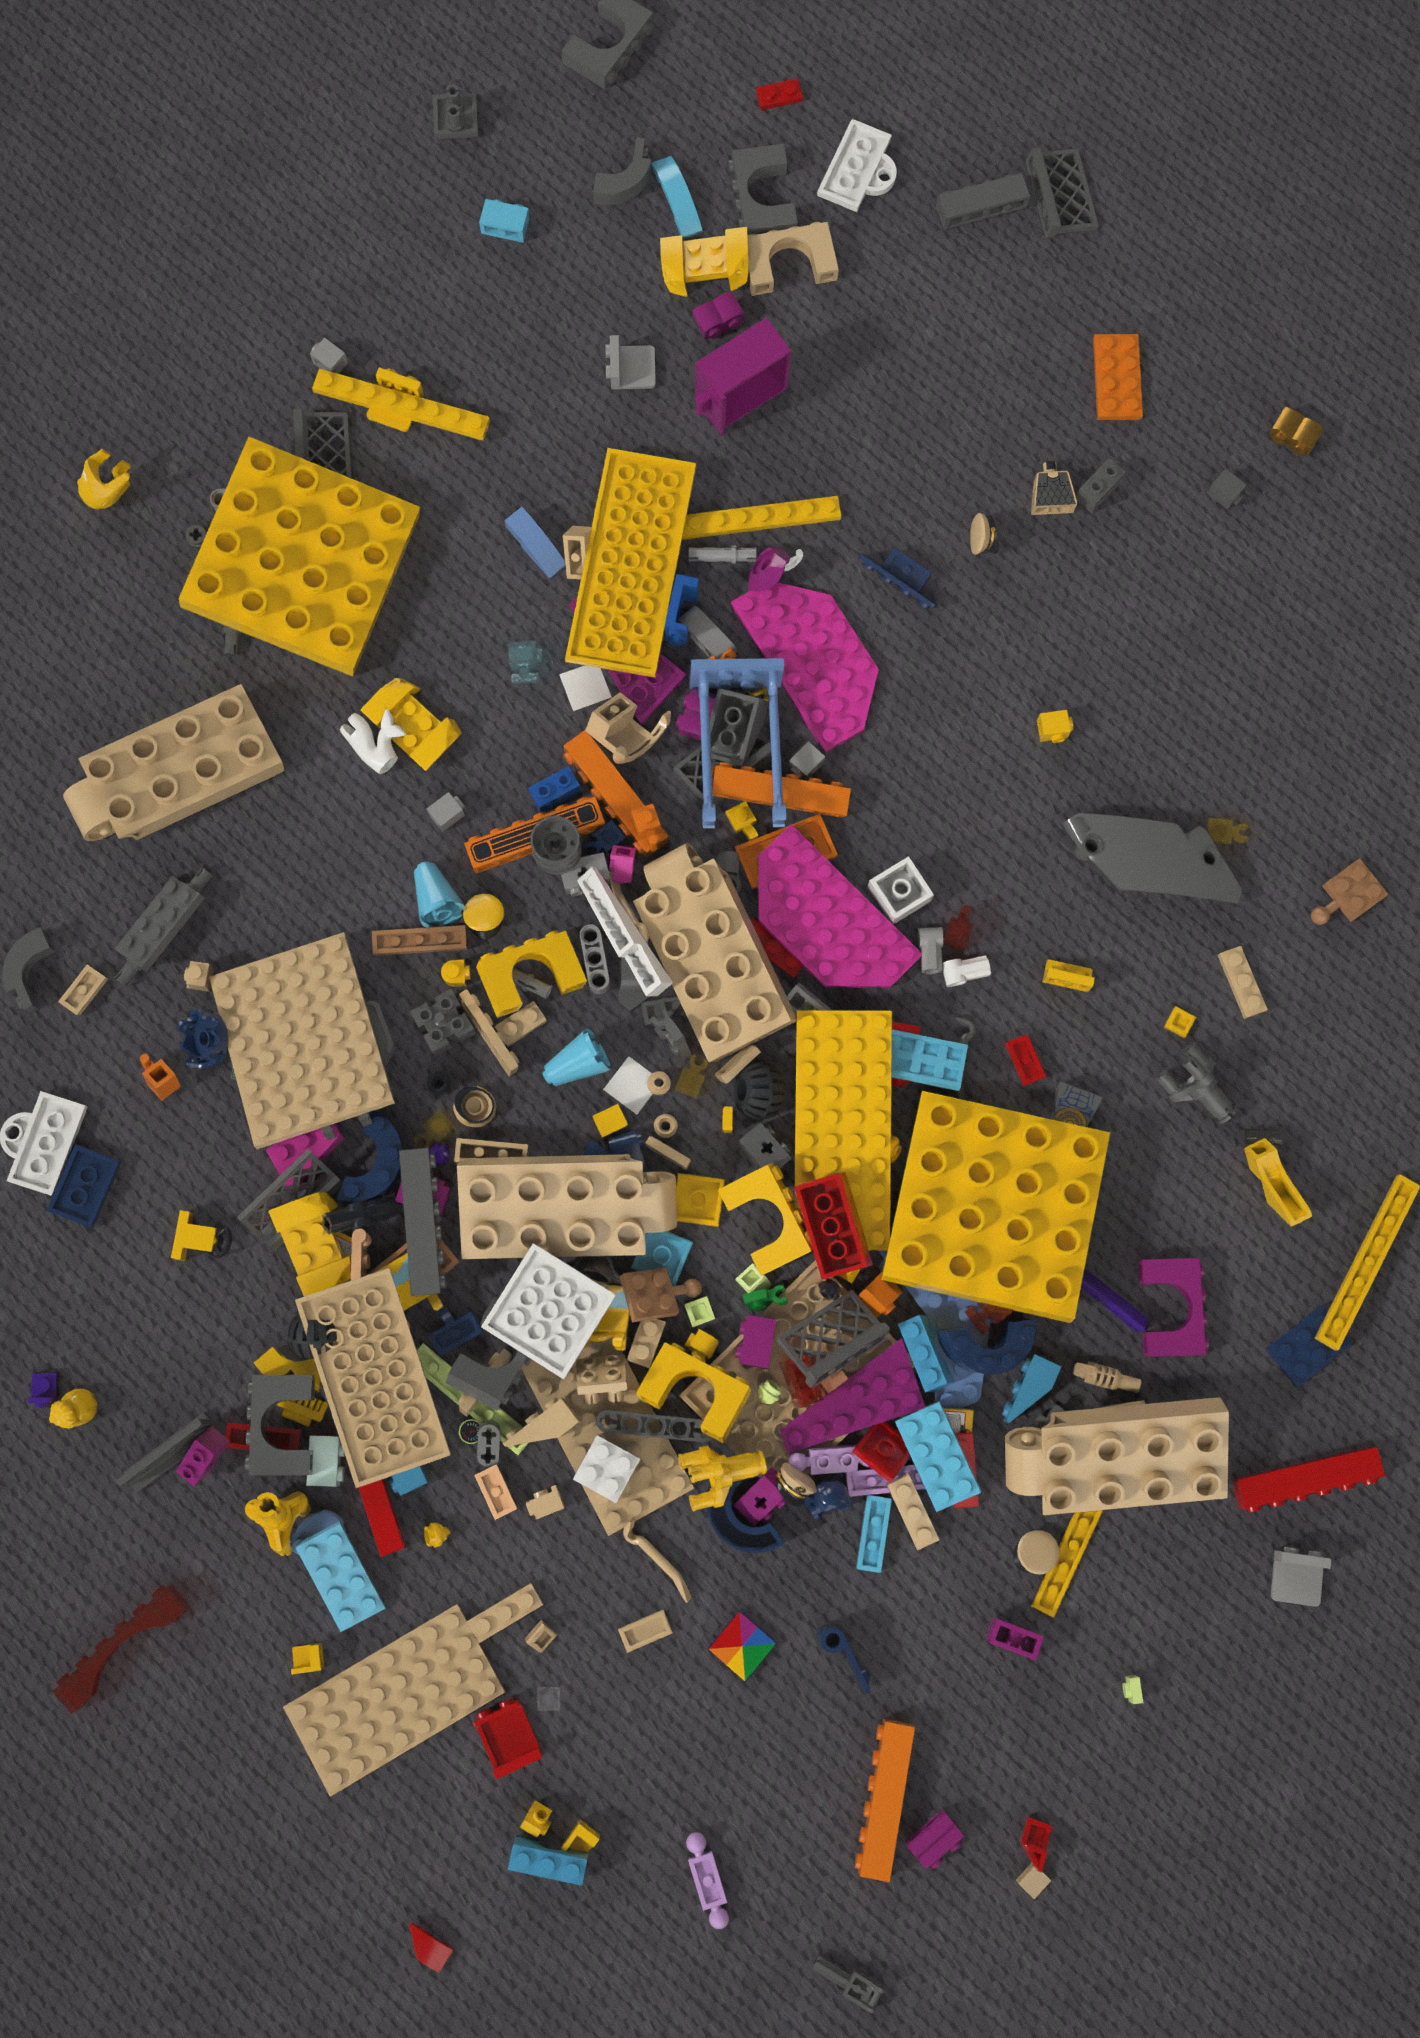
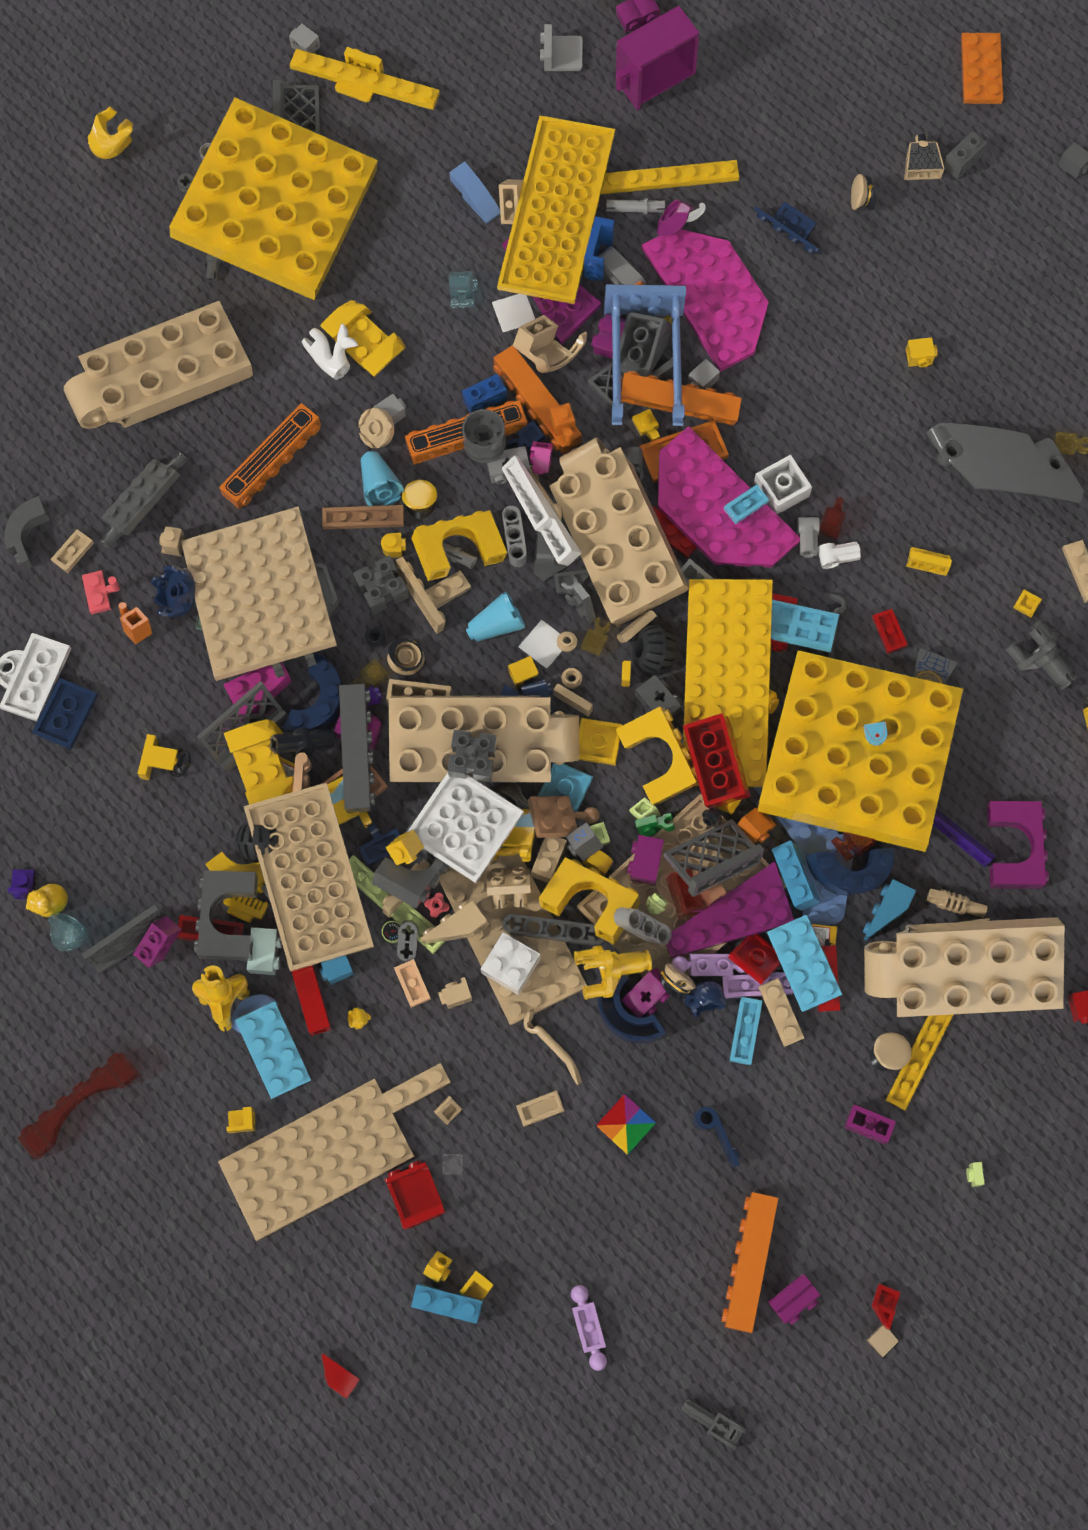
camera: 10 degrees right, 5 degrees down
(98, 1446) = (66, 932): none -> clear light blue piece
(115, 1038) = (98, 592): none -> coral plate
(309, 870) = (270, 456): none -> orange brick
(430, 833) = (376, 427): none -> tan tile
(482, 1342) = (405, 848): none -> yellow brick
(527, 1399) = (436, 911): none -> coral plate
(555, 1234) = (472, 755): none -> dark grey brick
(685, 1323) = (583, 842): none -> dark grey brick
(754, 1423) = (642, 925): none -> light grey beam
(859, 917) = (746, 504): none -> medium azure plate
(1013, 1192) = (875, 733): none -> medium azure tile

